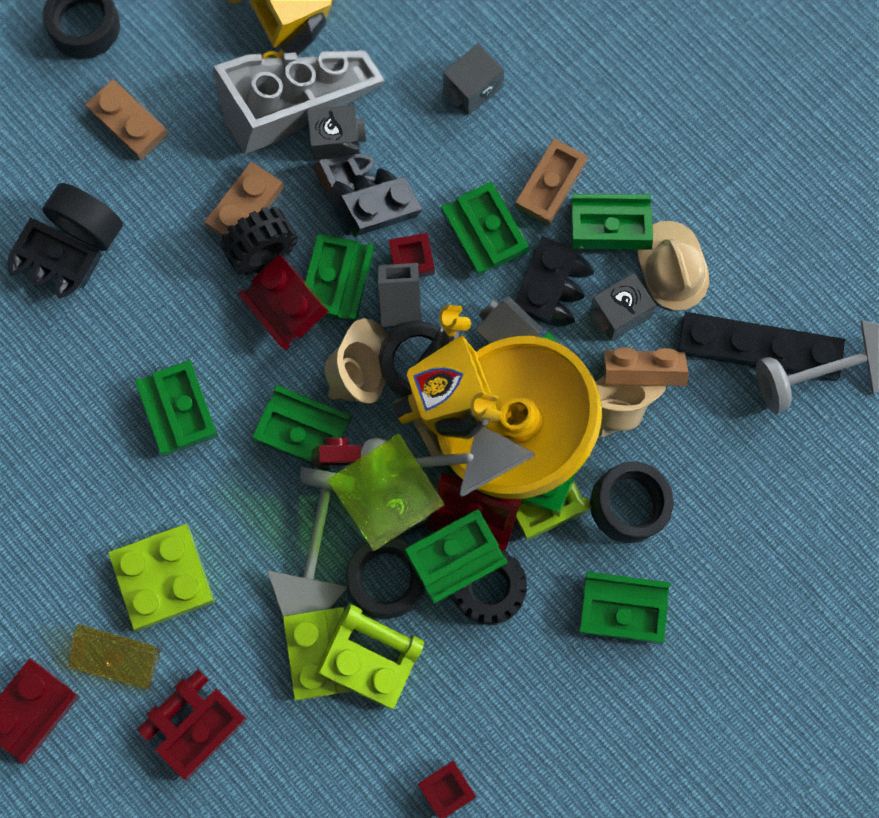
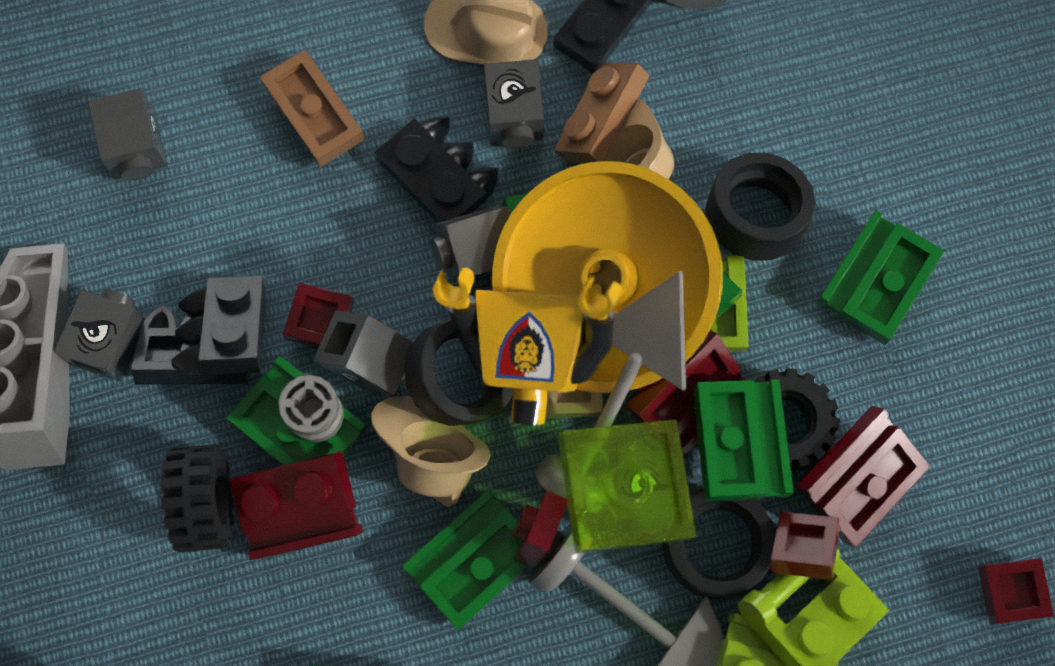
camera: 70 degrees left, 0 degrees up
(249, 193) = (128, 495): medium nougat plate -> none
(347, 287) = (319, 416): none -> light grey wheel
(406, 629) = (805, 545): none -> plate
(475, 653) = (864, 475): none -> plate
(485, 229) = (329, 213): green plate -> none
(612, 221) = (399, 64): green plate -> none

